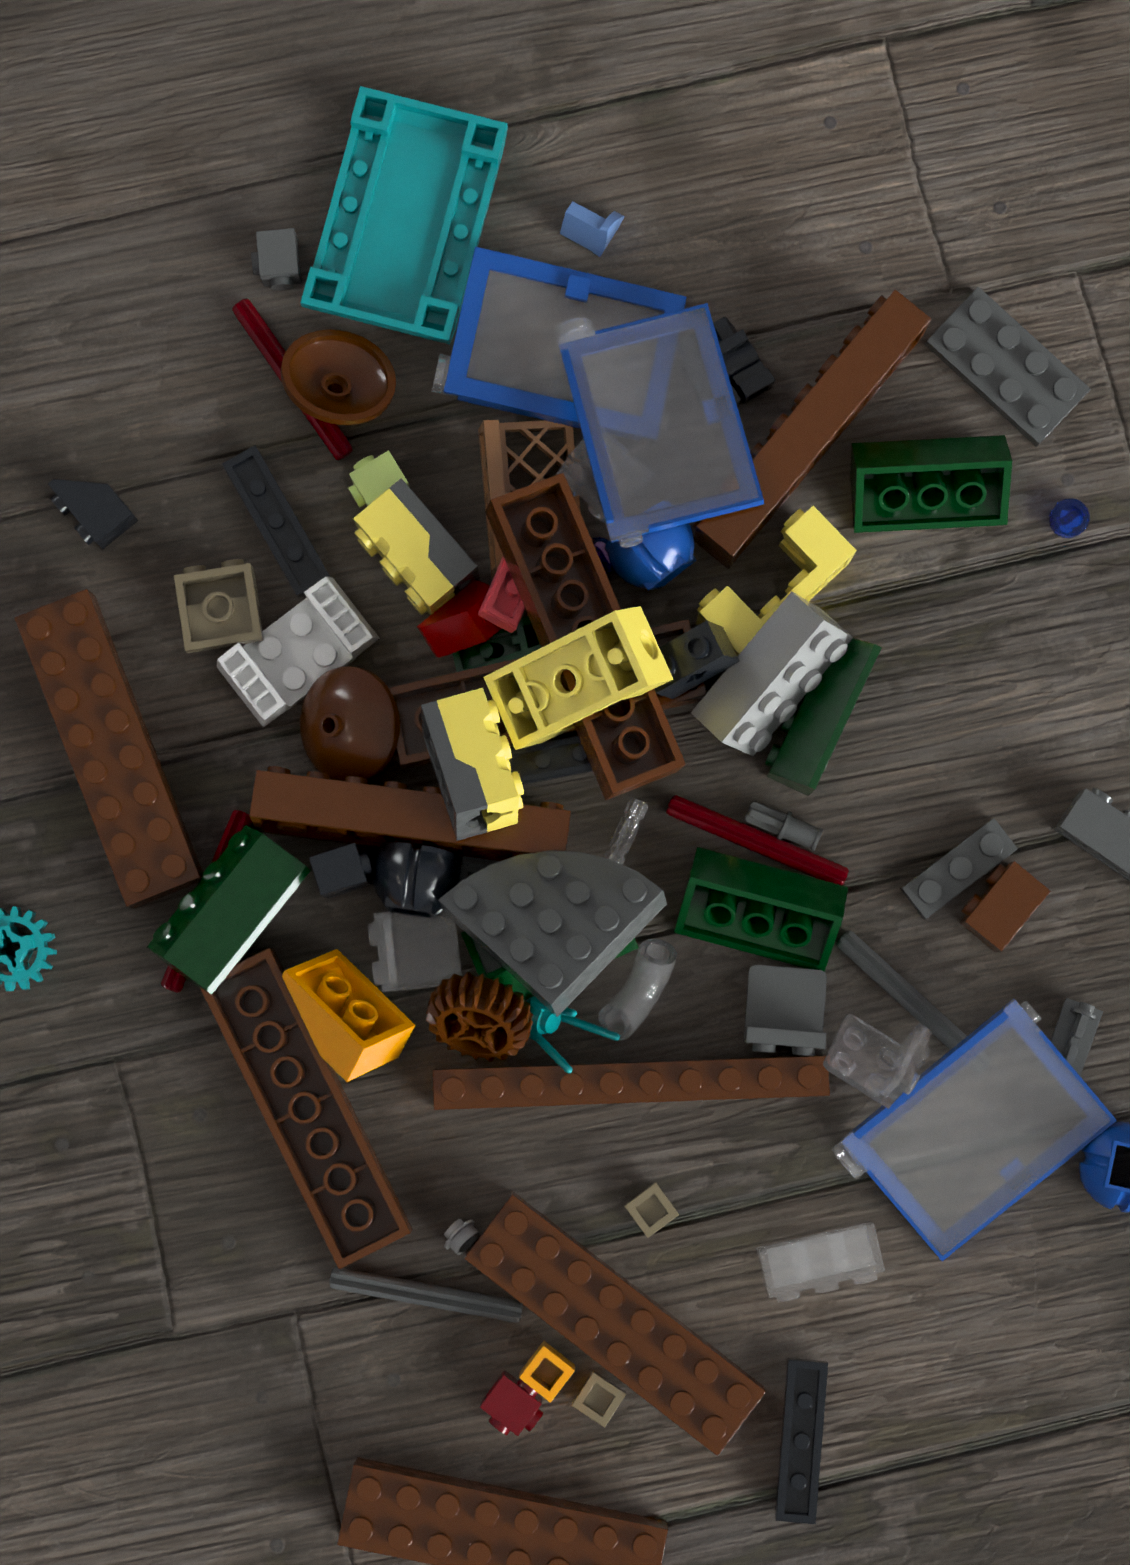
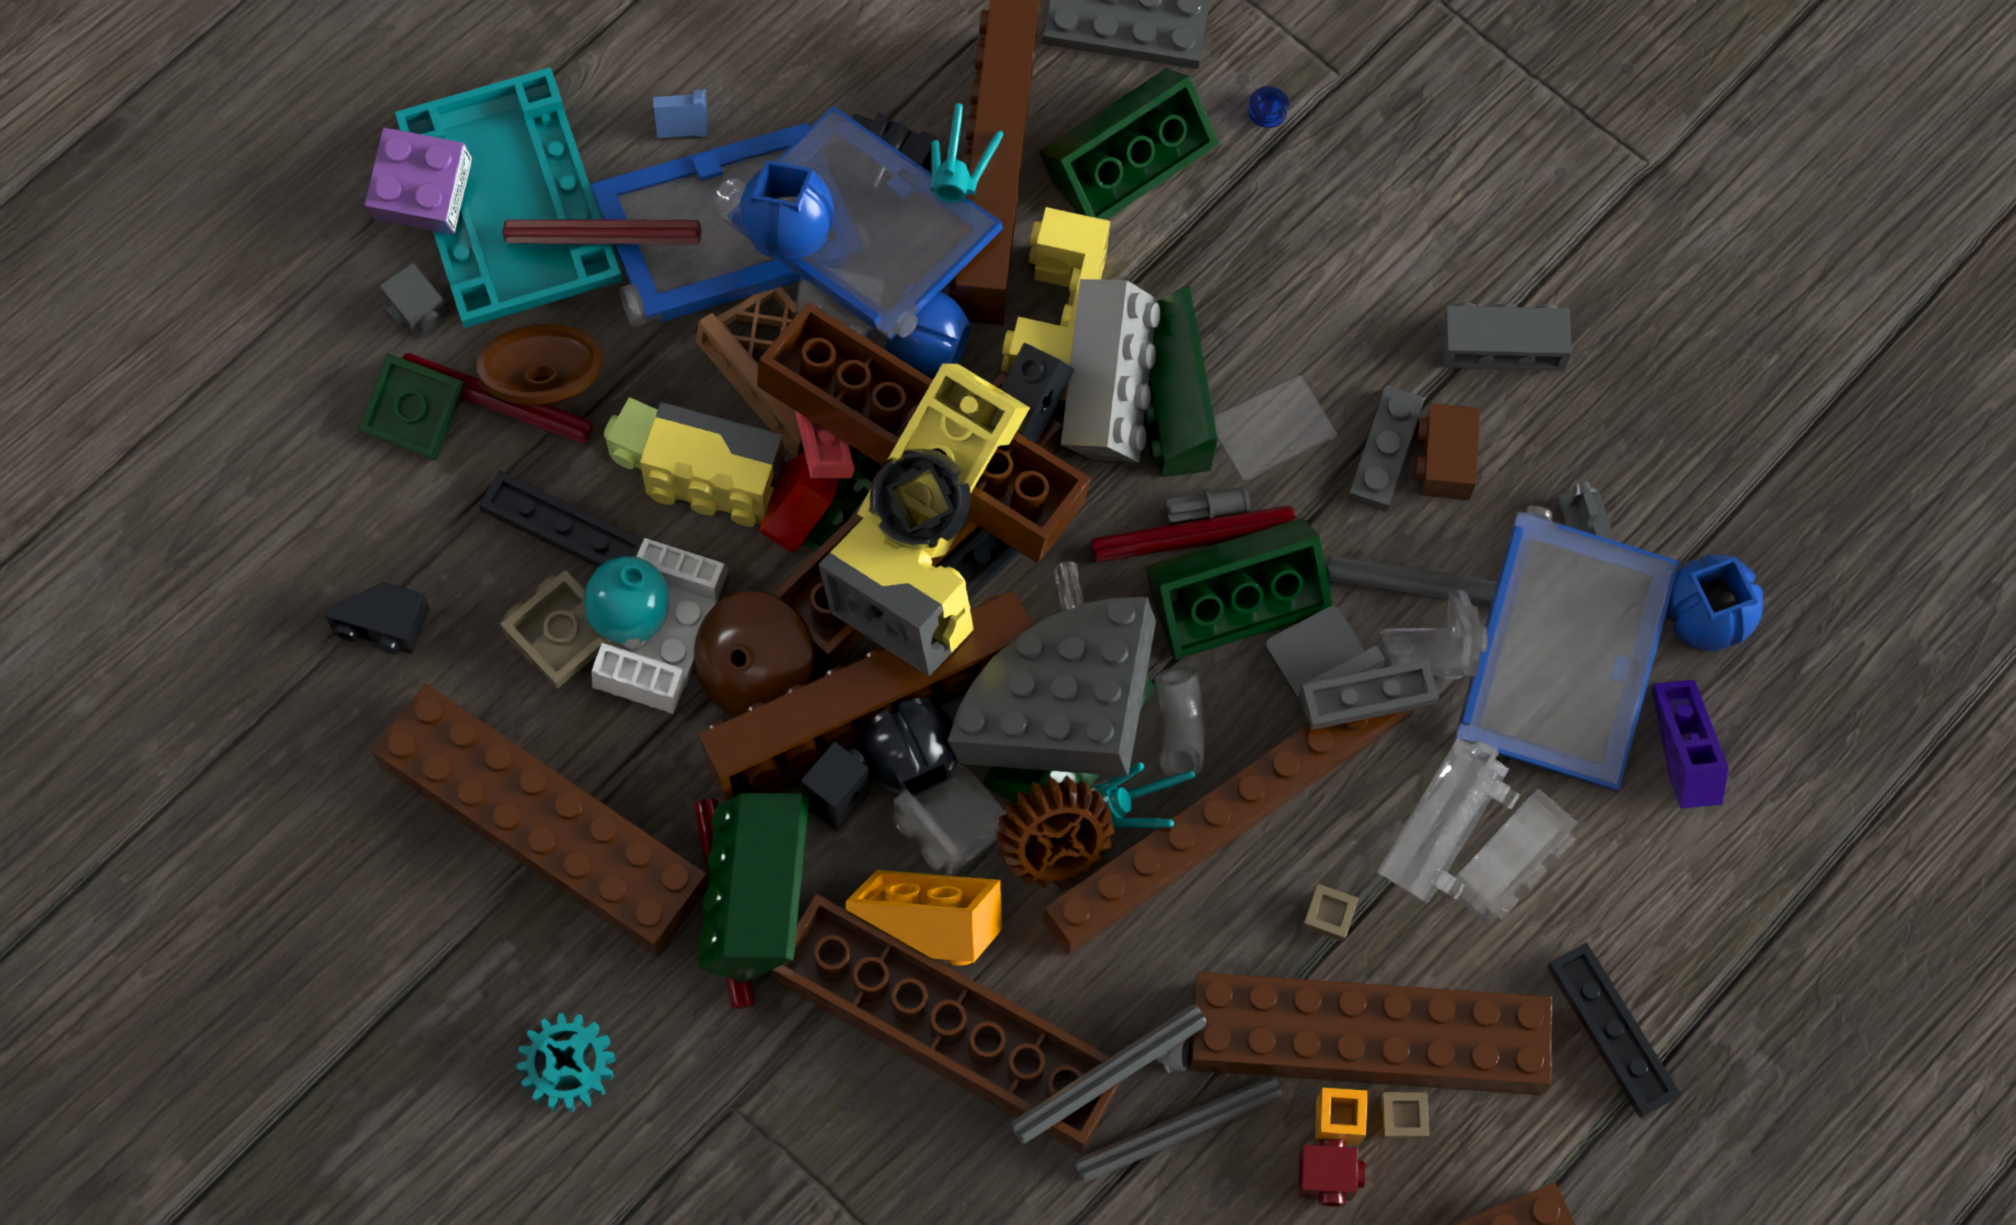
camera: 40 degrees left, 15 degrees down
(222, 347) = (411, 406): none -> dark green plate
(278, 620) = (627, 599): none -> teal cylinder
(337, 162) = (418, 181): none -> medium lavender brick
(390, 1231) = (1108, 1074): none -> dark grey axle
(455, 297) = (601, 231): none -> dark red axle
(503, 709) = (893, 511): none -> black piece
(586, 398) = (783, 225): none -> blue piece
(748, 437) = (952, 180): none -> teal plant
(782, 1203) = (1446, 819): none -> clear brick
(789, 1072) = (1369, 694): none -> dark grey plate
(880, 793) = (1272, 428): none -> clear piece
(1022, 1263) = (1690, 745): none -> dark purple slope

